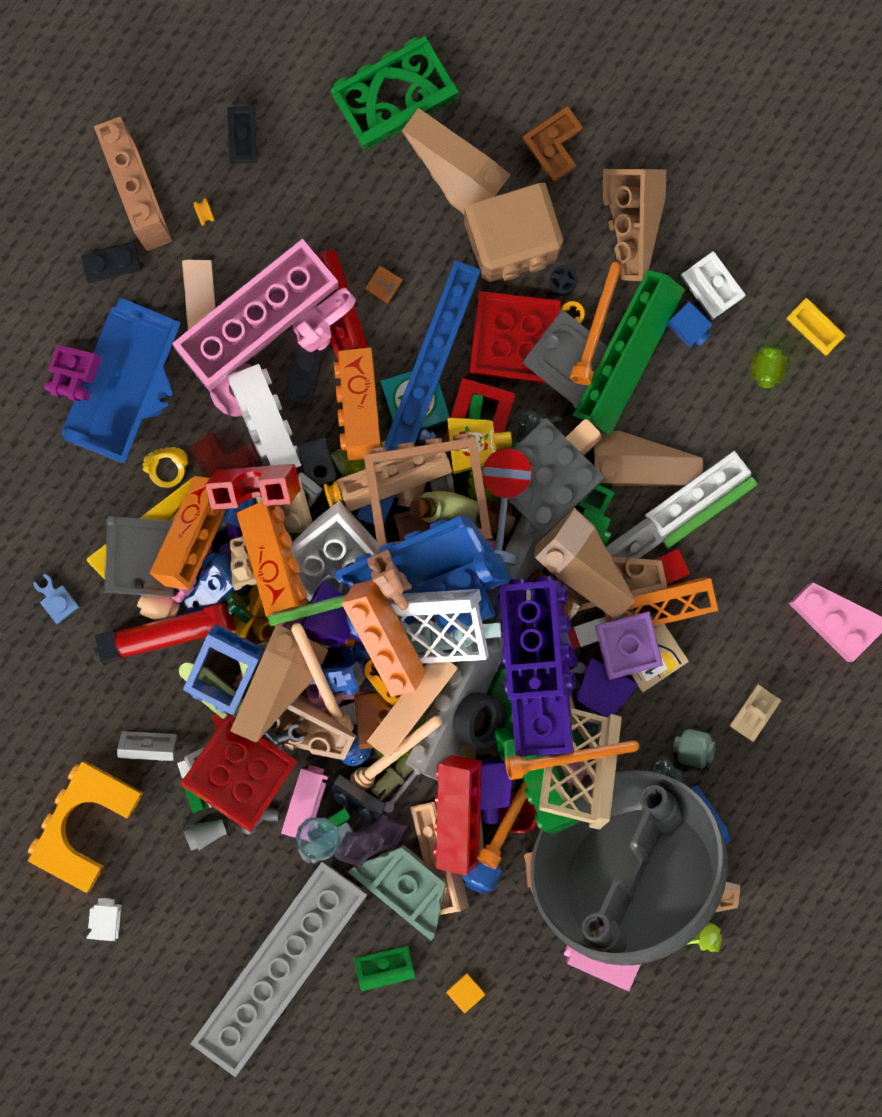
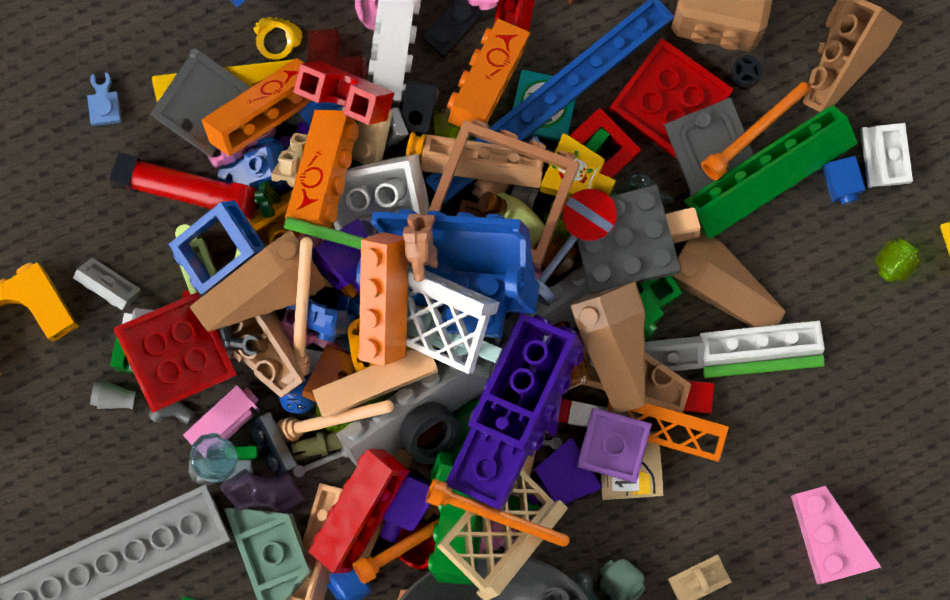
camera: 30 degrees right, 5 degrees down
(158, 607) = (192, 160): light nougat brick -> none
(566, 307) = (746, 105): light orange bush -> none

